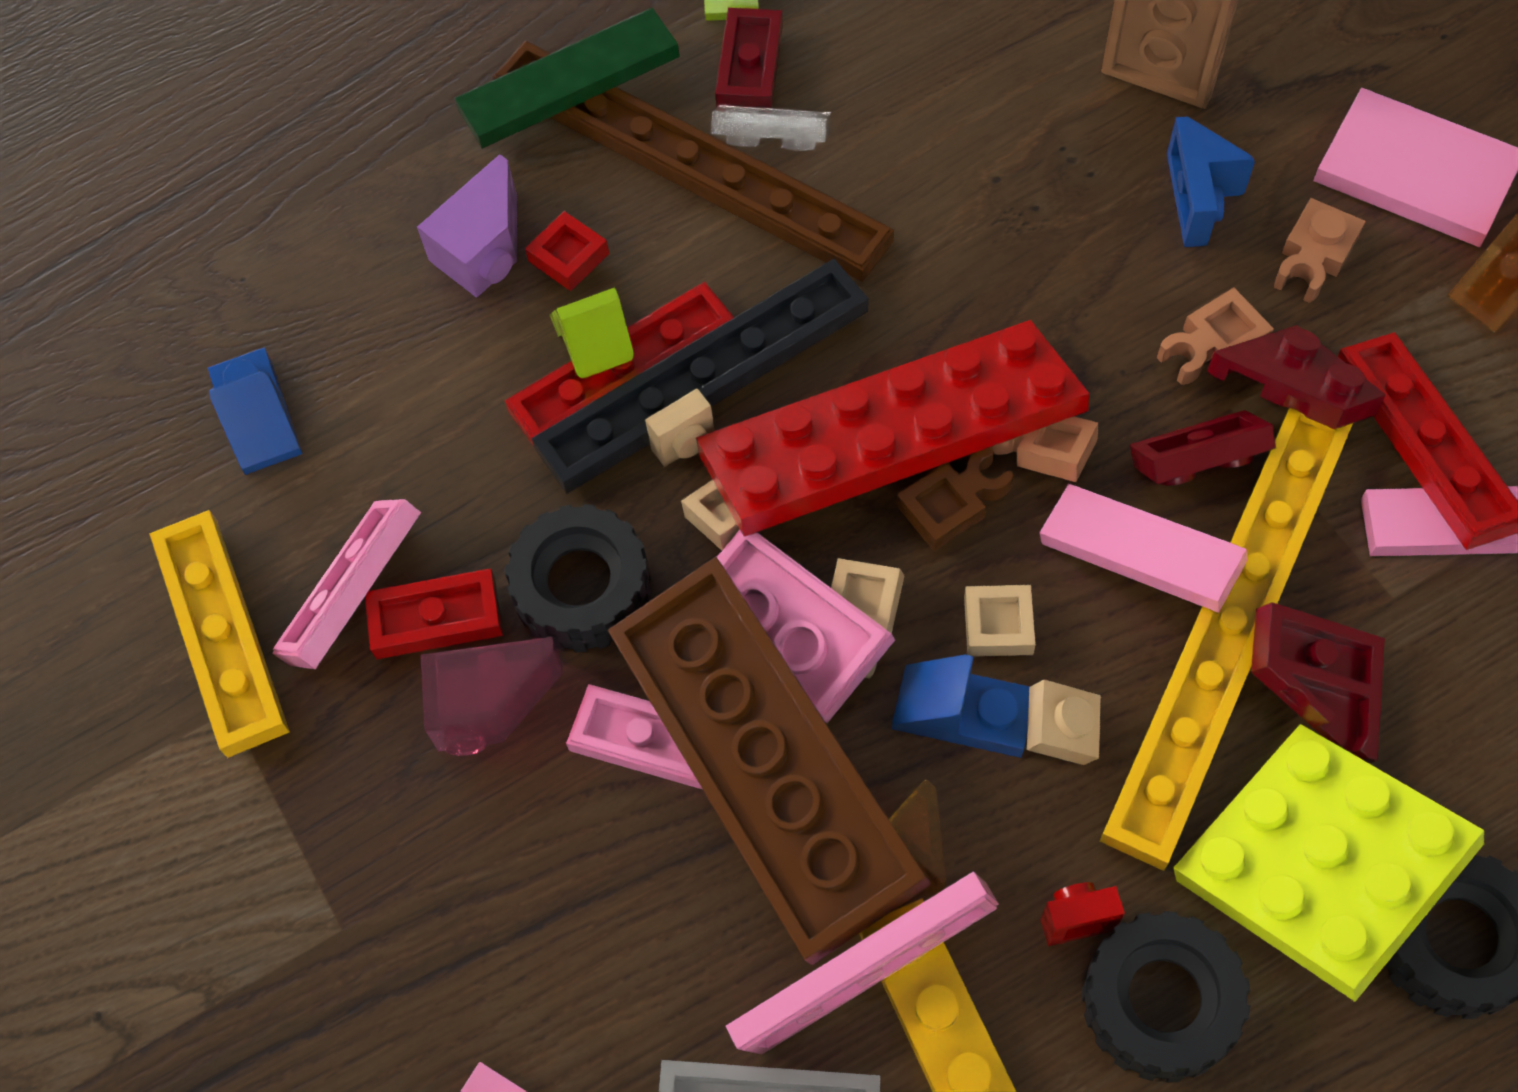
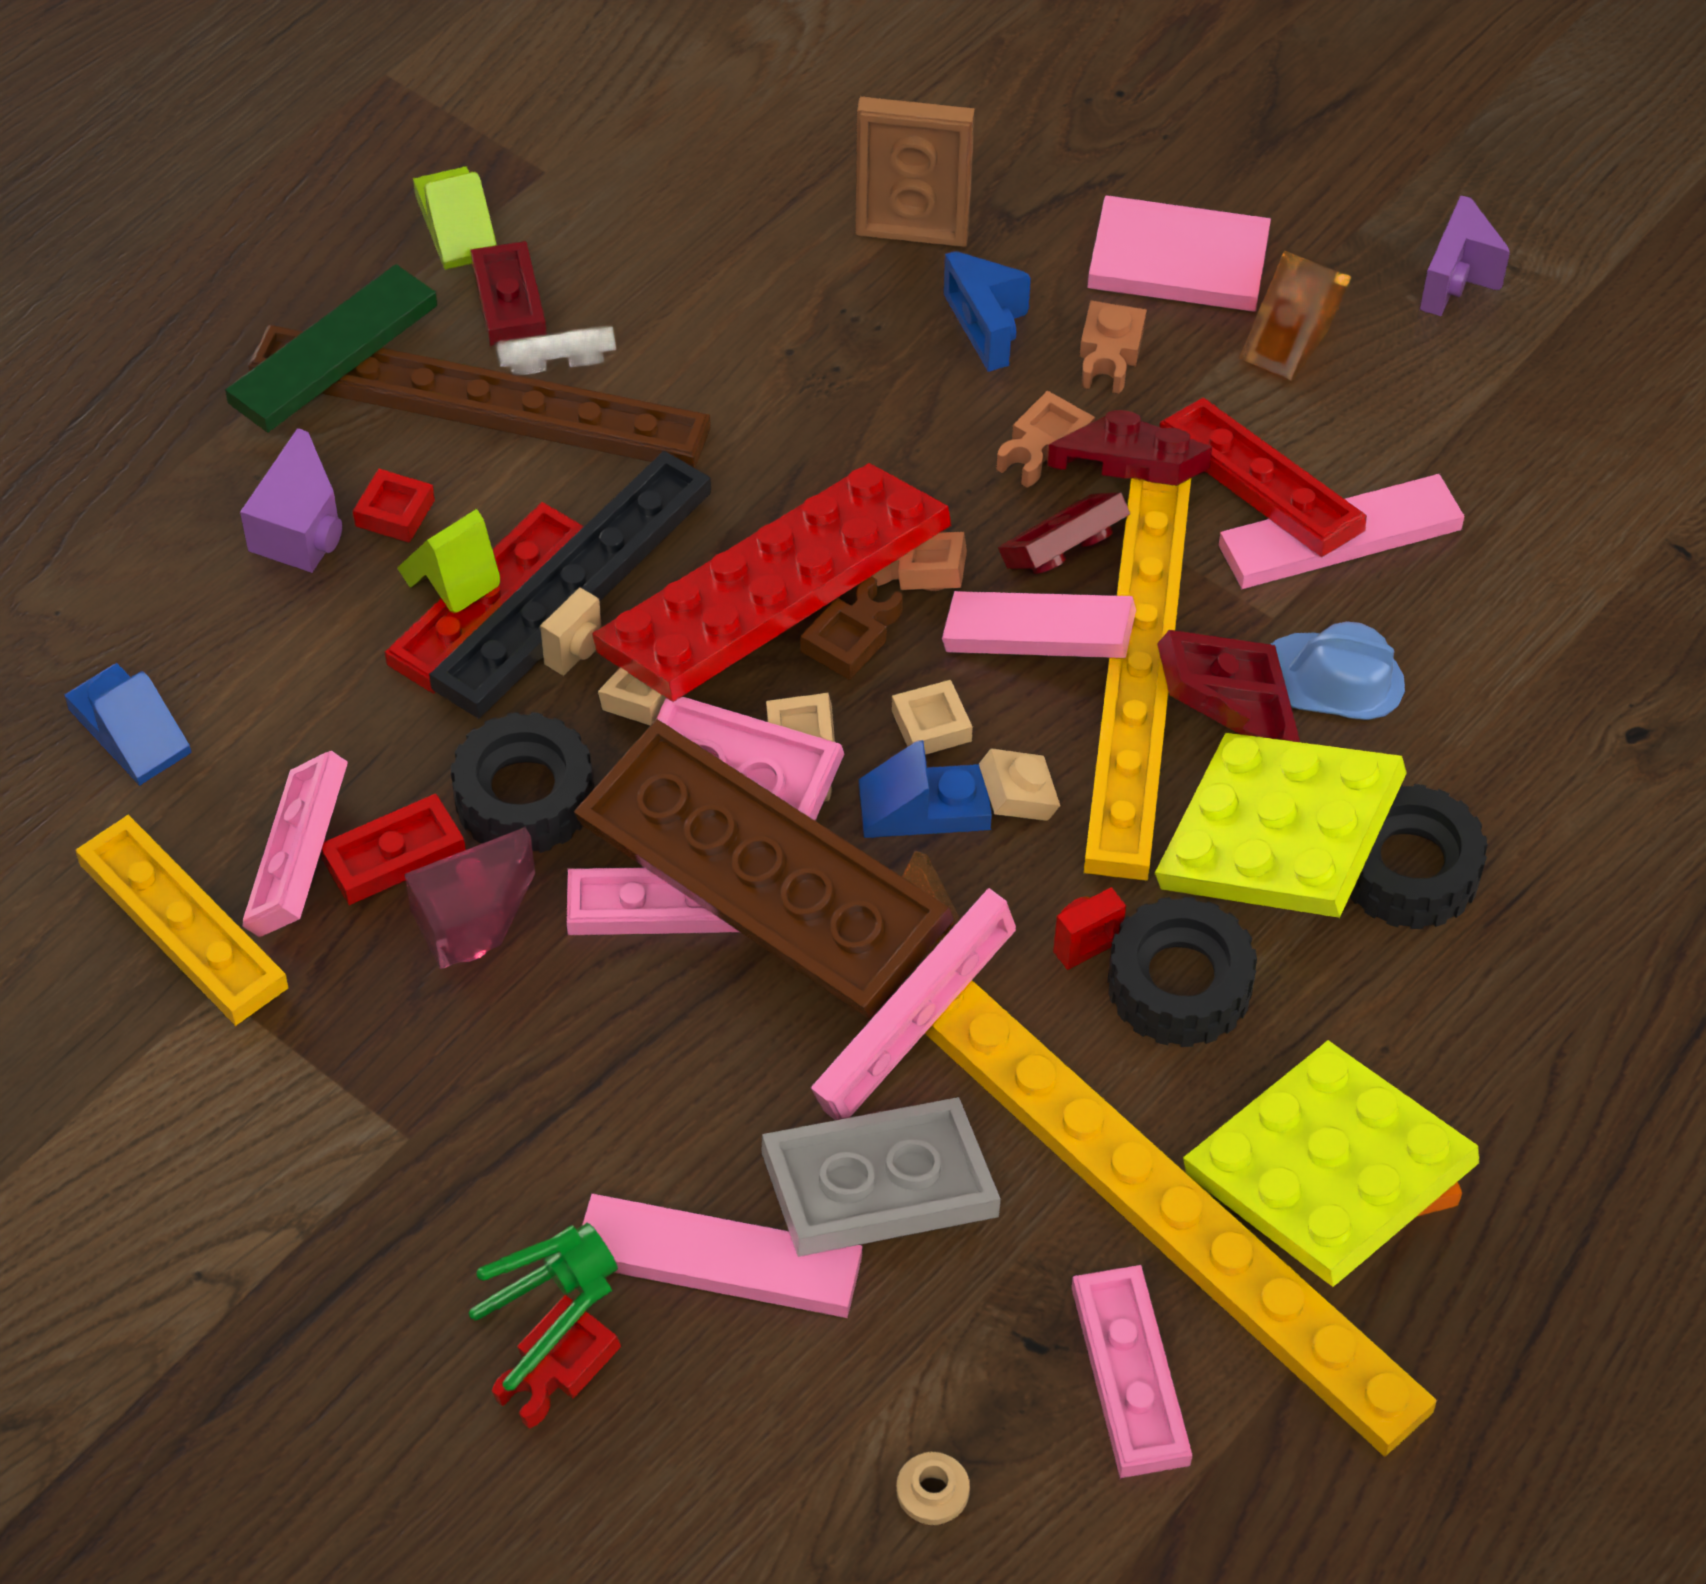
camera: 25 degrees left, 10 degrees down
(1446, 685) = (1341, 671): none -> medium blue piece

